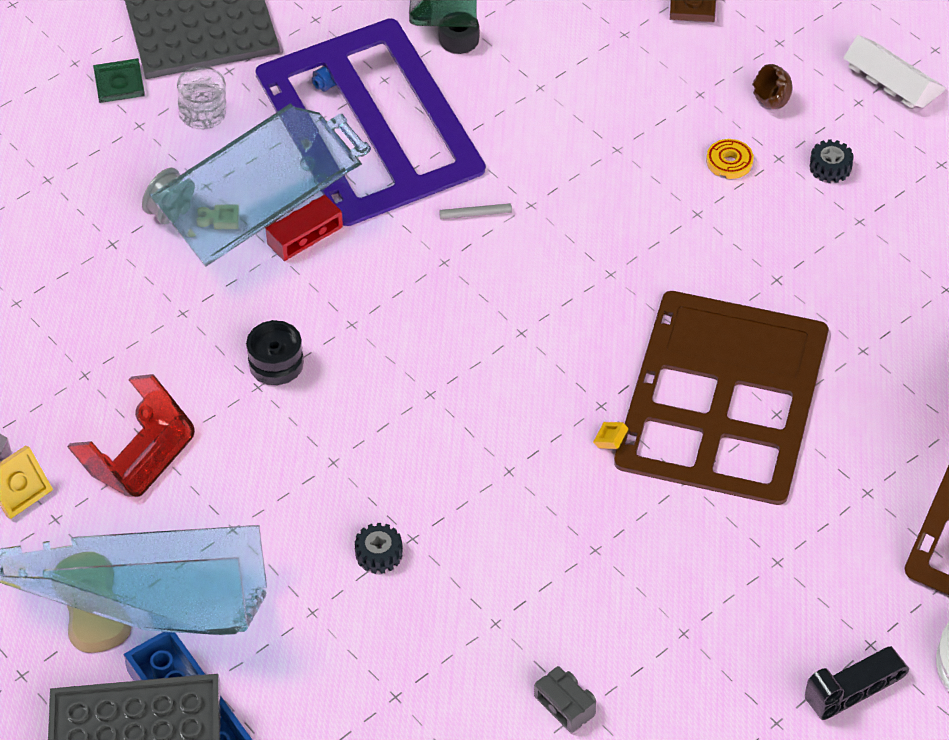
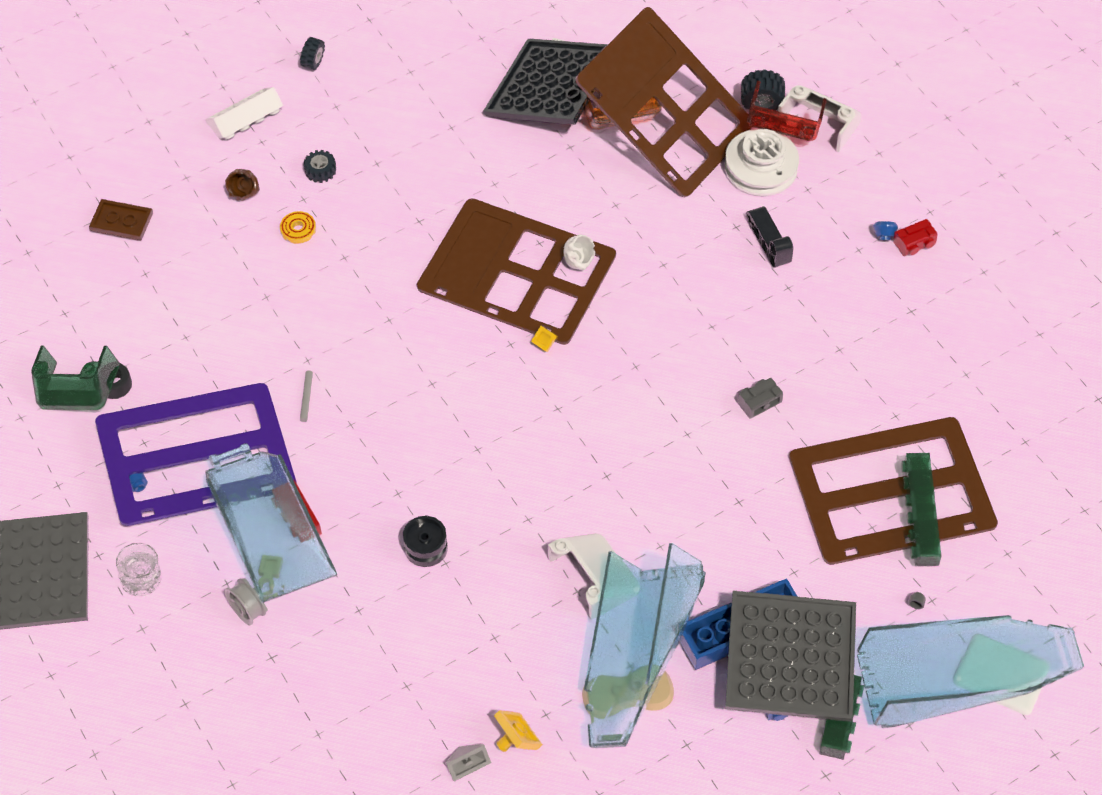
camera: 80 degrees left, 5 degrees up
(118, 80) = (86, 639): clear green tile -> none
(151, 451) = (493, 640): clear red windscreen -> none
(283, 523) = (592, 555): none -> white windscreen
(369, 552) = (611, 500): black wheel -> none
(758, 449) = (579, 252): none -> white hair

